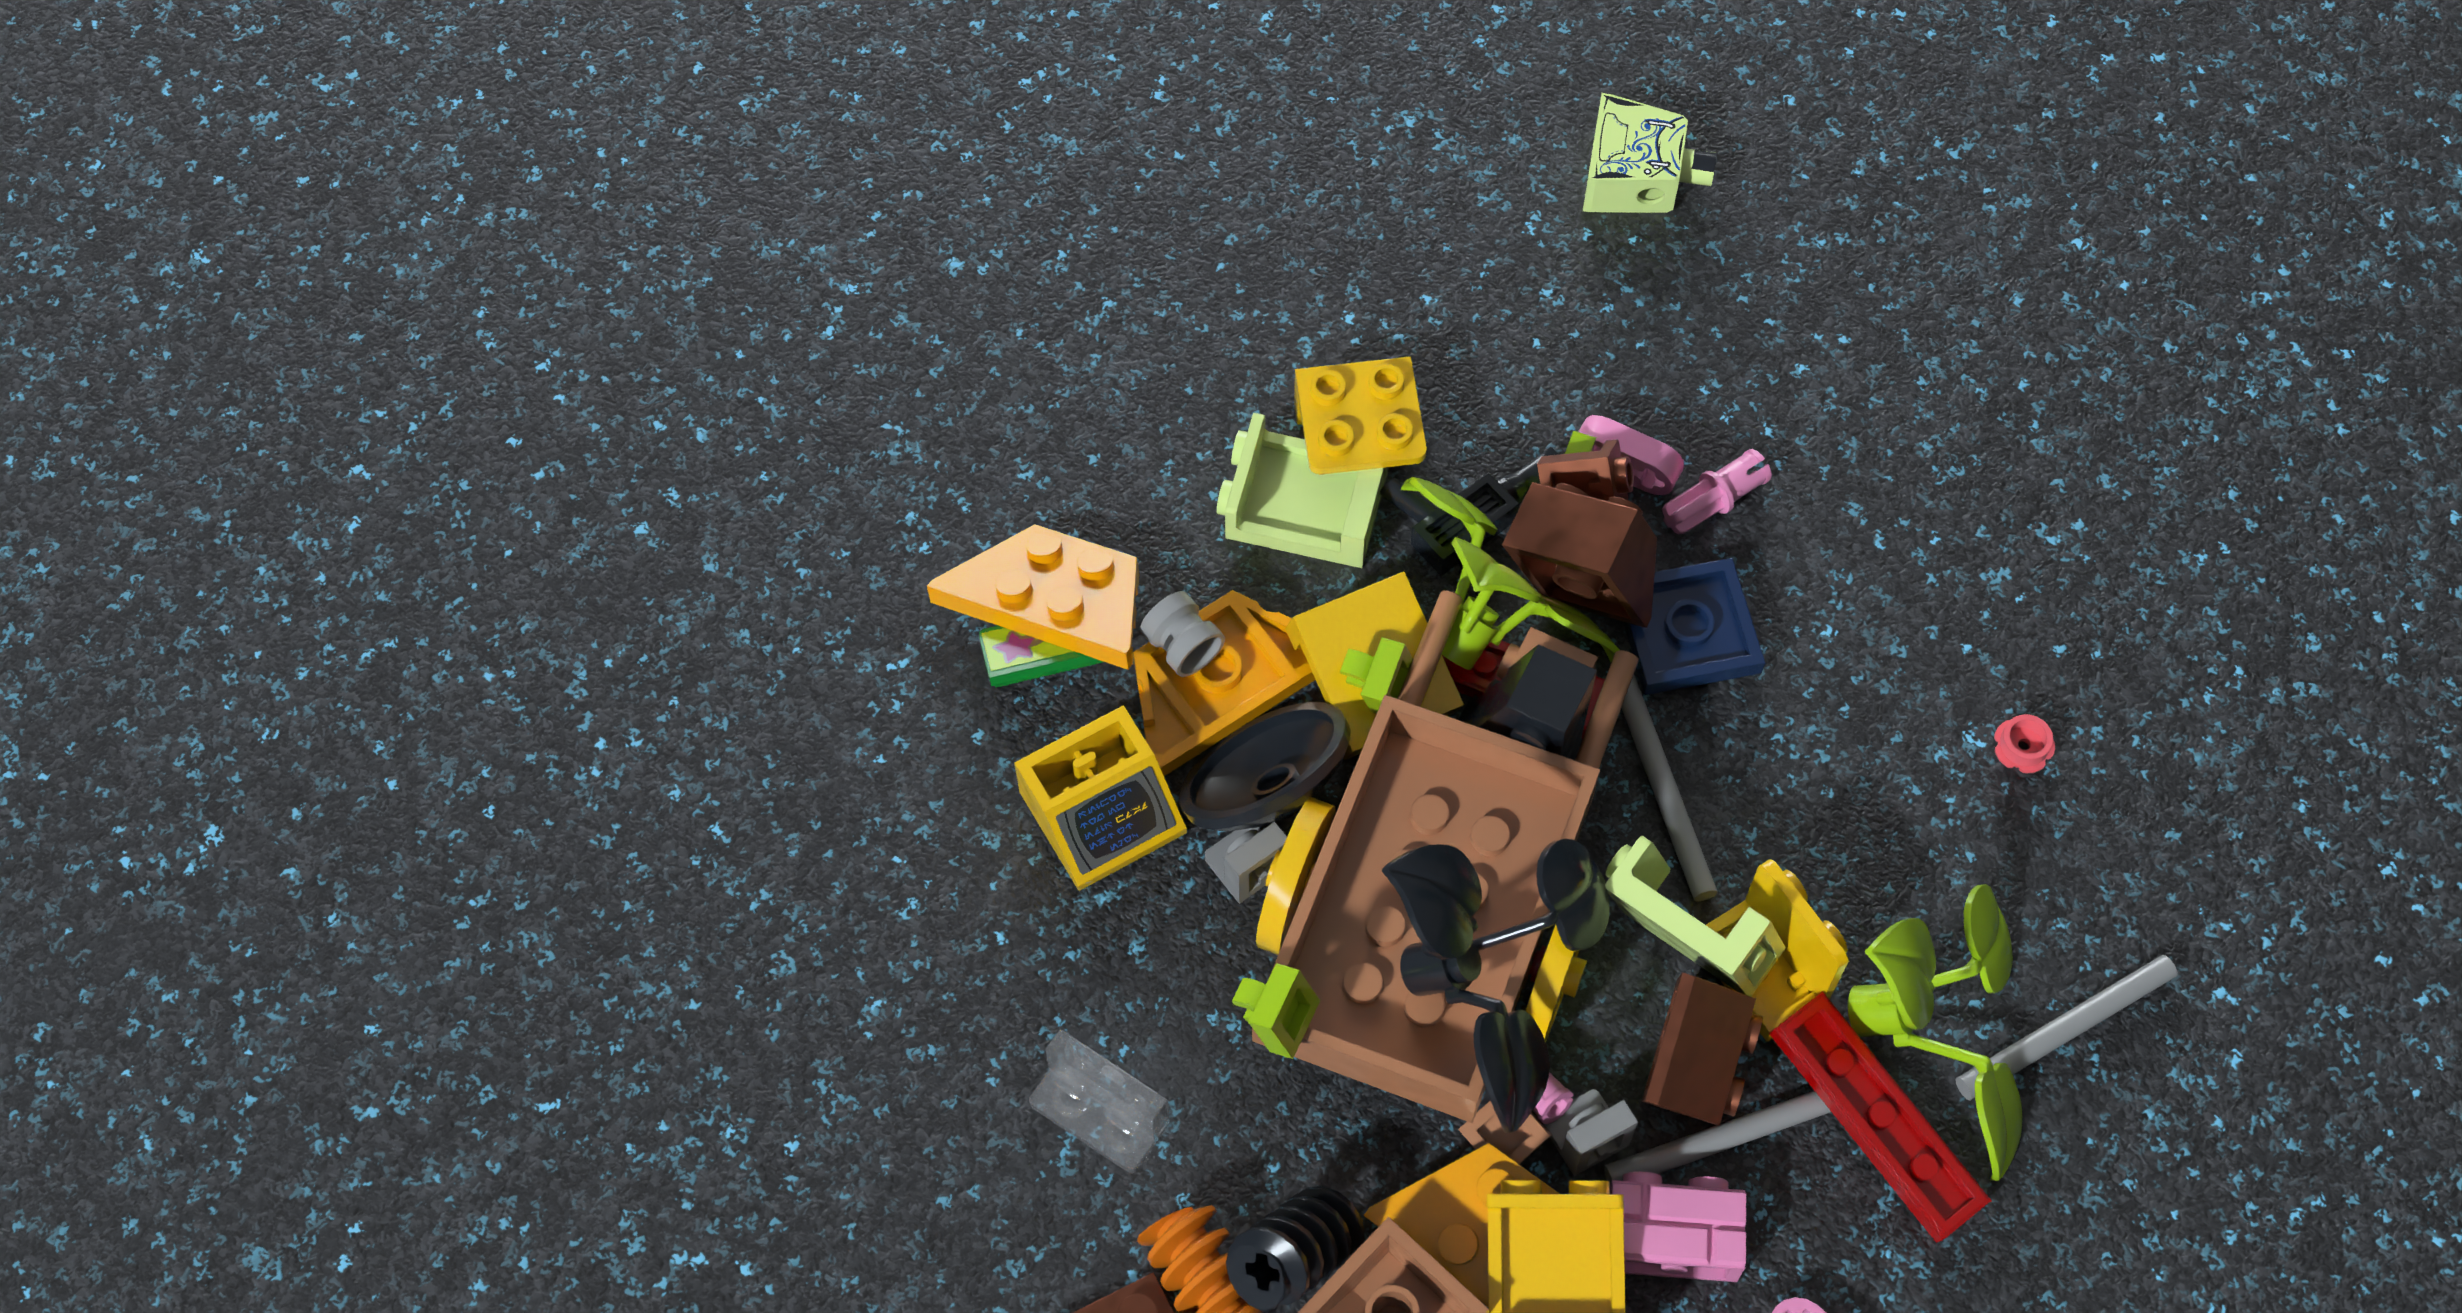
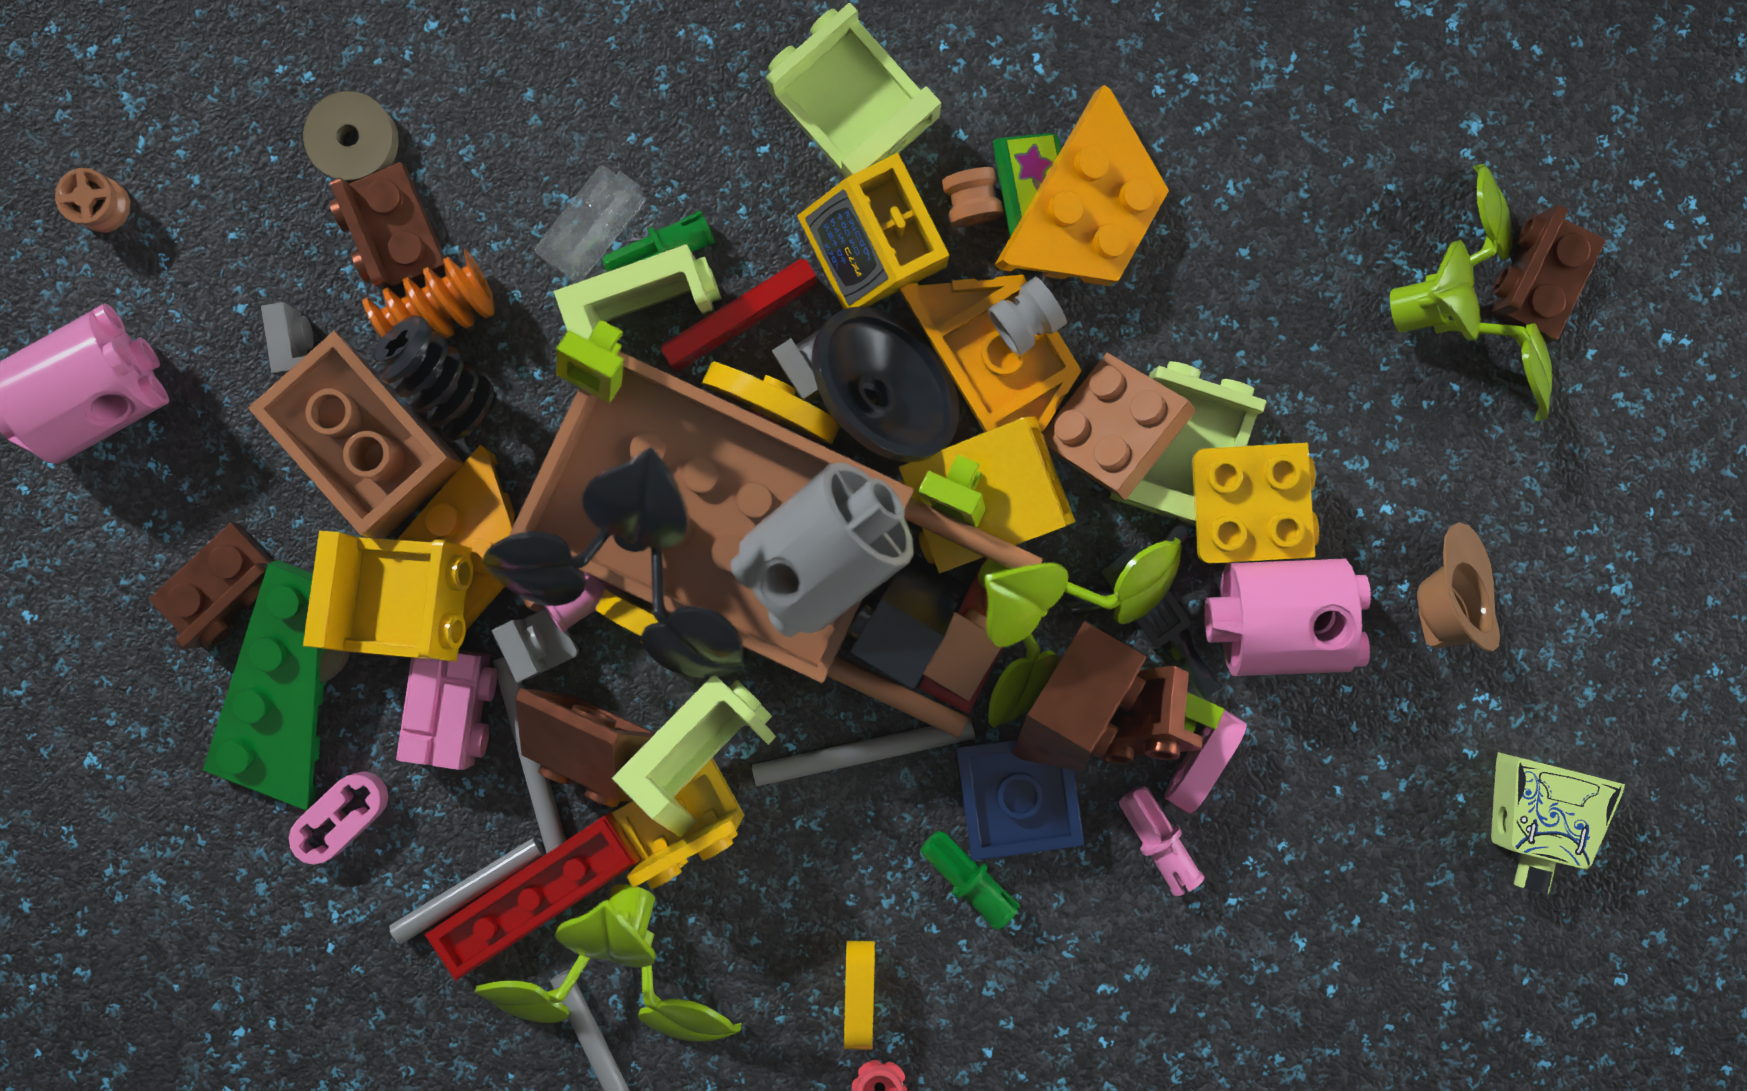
camera: 90 degrees right, 25 degrees up
(946, 839) = (850, 93): none -> yellowish green panel
(1051, 707) = (973, 197): none -> nougat wheel
(1104, 192) = (1546, 273): none -> copper bracket
(1121, 1029) = (690, 230): none -> green axle
(1142, 280) = (1452, 293): none -> lime plant
(1188, 929) = (739, 315): none -> red tile
(1208, 1087) = (637, 288): none -> yellowish green panel
(1288, 547) = (1117, 425): none -> nougat plate
(1436, 248) = (1458, 598): none -> medium nougat piece
(1460, 754) = (824, 549): none -> light grey cylinder
(1473, 378) = (1290, 617): none -> bright pink cylinder
(1786, 667) = (970, 880): none -> green axle
(1885, 1200) = (466, 891): none -> light grey bar
(1928, 766) = (859, 995): none -> yellow beam

